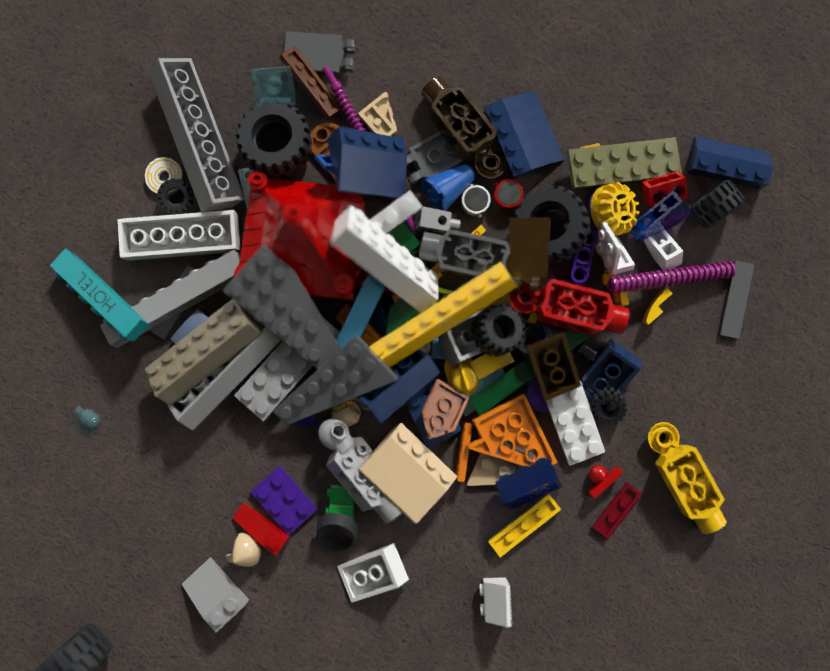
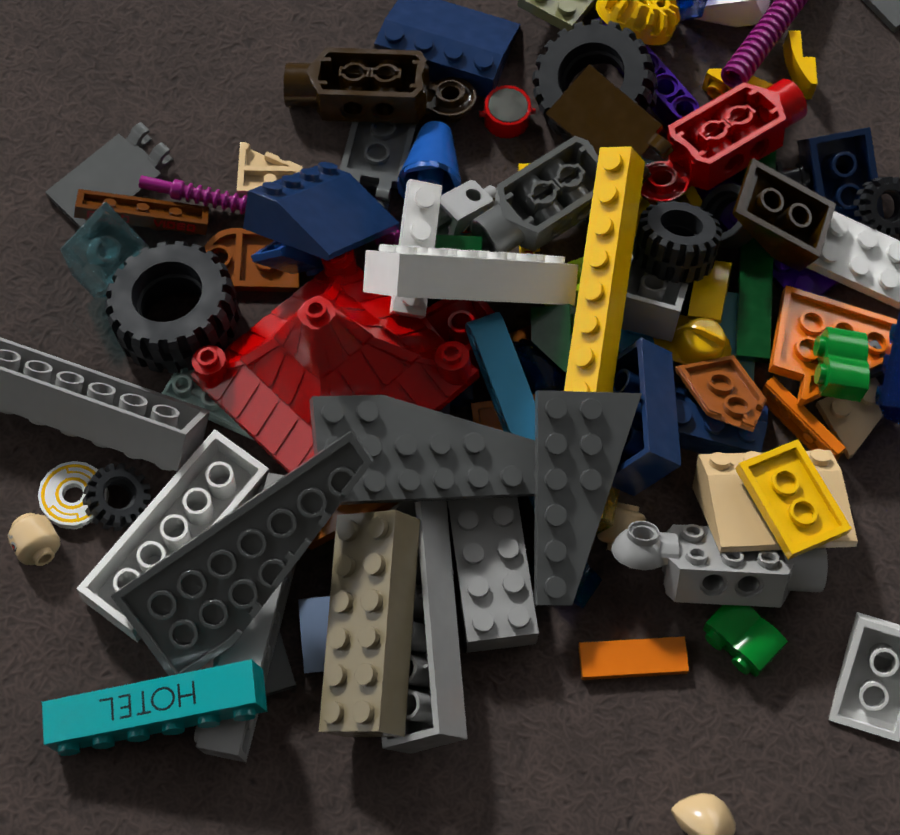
camera: 55 degrees left, 20 degrees down
(130, 179) = (33, 538): none -> tan head
(166, 276) = (219, 580): none -> dark grey wing
(261, 528) = (688, 775): red slope -> none
(284, 500) = (672, 713): dark purple plate -> none
(293, 465) = (633, 658): none -> orange tile
(340, 520) = (755, 660): black tyre -> none
(408, 482) = (793, 499): none -> yellow plate
(475, 200) = (479, 151): pearl dark grey piece -> none
(500, 451) = (842, 364): none -> green brick
(612, 251) = (687, 46): white bracket -> none

